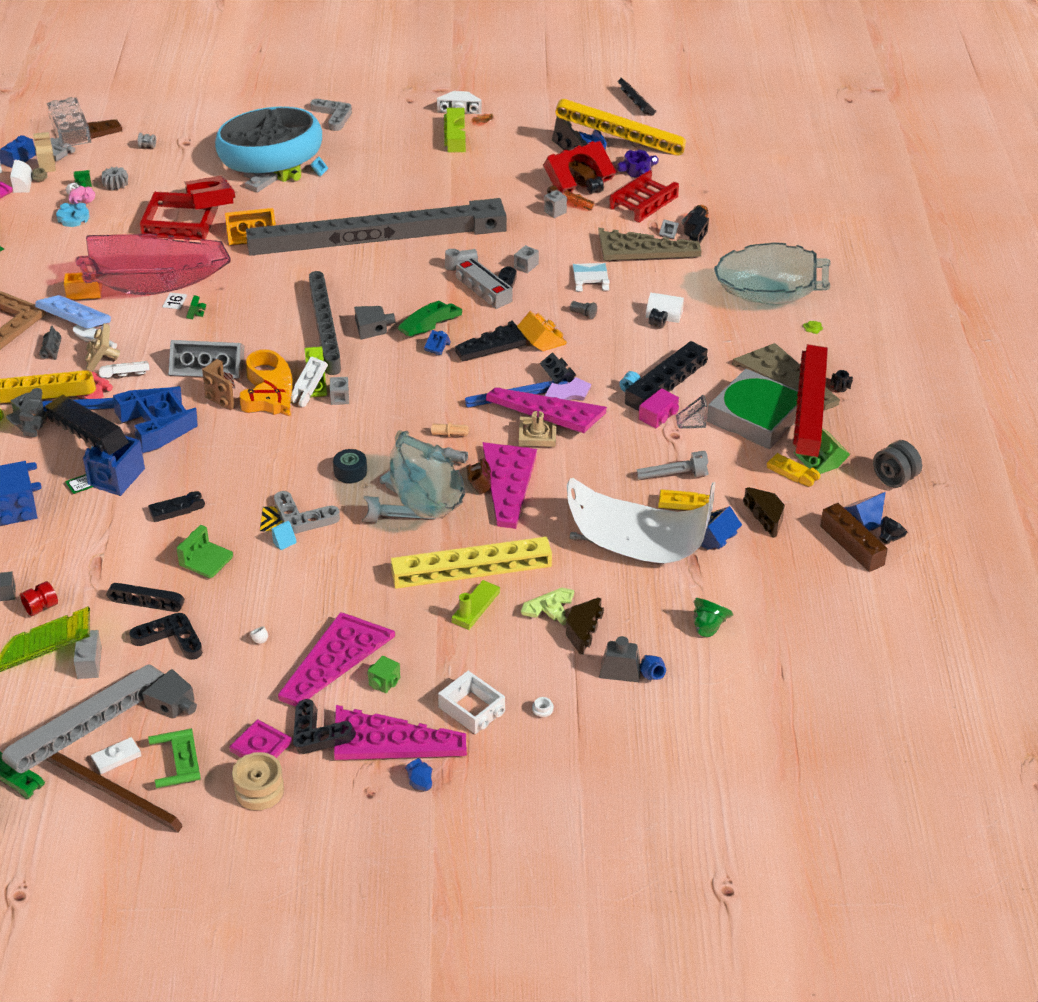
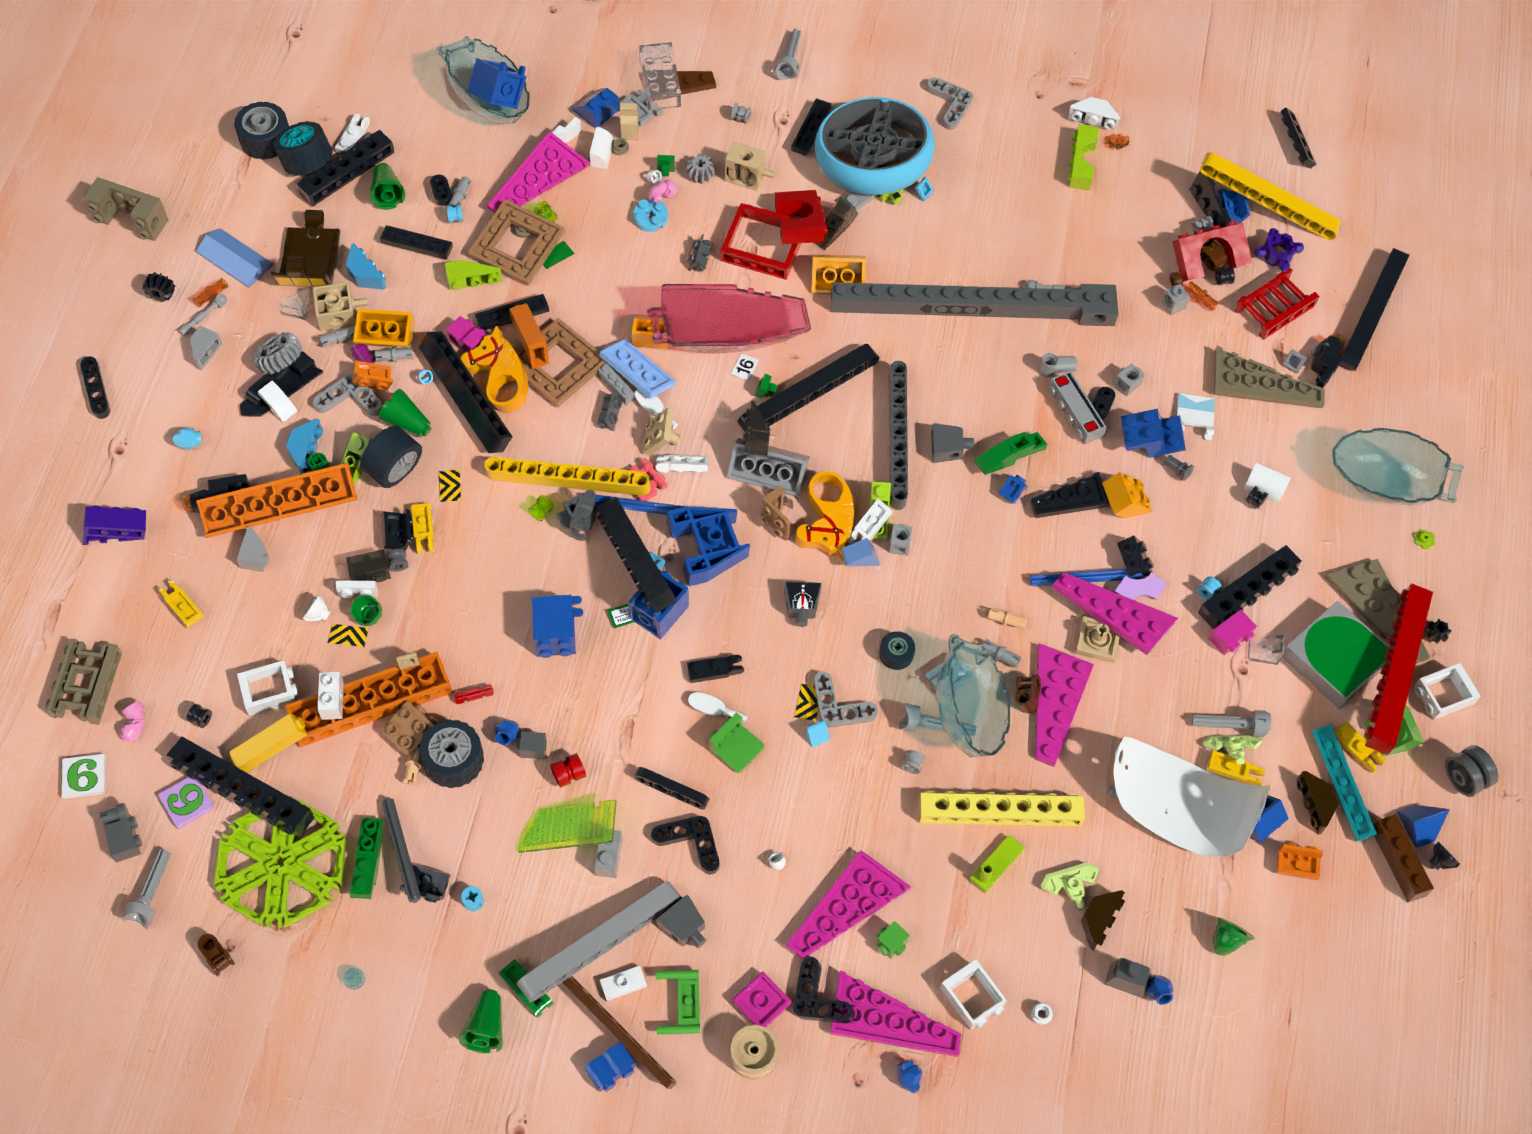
camera: 10 degrees right, 20 degrees up
(46, 321) = (615, 383): none -> light grey piece
(110, 821) = (610, 1067): none -> blue brick
(122, 227) = (700, 247): none -> dark grey hinge
(156, 168) = (746, 166): none -> tan piece
(174, 532) = (711, 705): none -> white piece
(184, 105) = (787, 66): none -> light grey piece
(189, 328) = (757, 432): none -> clear smoke slope
(207, 147) = (810, 127): none -> black plate
(235, 304) = (816, 385): none -> black beam
(245, 194) = (838, 221): none -> clear smoke slope
(253, 444) = (802, 600): none -> torso
(303, 403) = (860, 554): none -> medium blue slope
(379, 541) = (912, 762): none -> light grey wheel
(561, 290) = (1153, 433): none -> blue bracket
(679, 484) = (1233, 744): none -> yellowish green piece
(728, 189) = (1374, 309): none -> black beam
(760, 553) = (1299, 861): none -> orange bracket
(792, 499) = (1344, 783): none -> teal plate
(879, 418) = (1461, 682): none -> white window

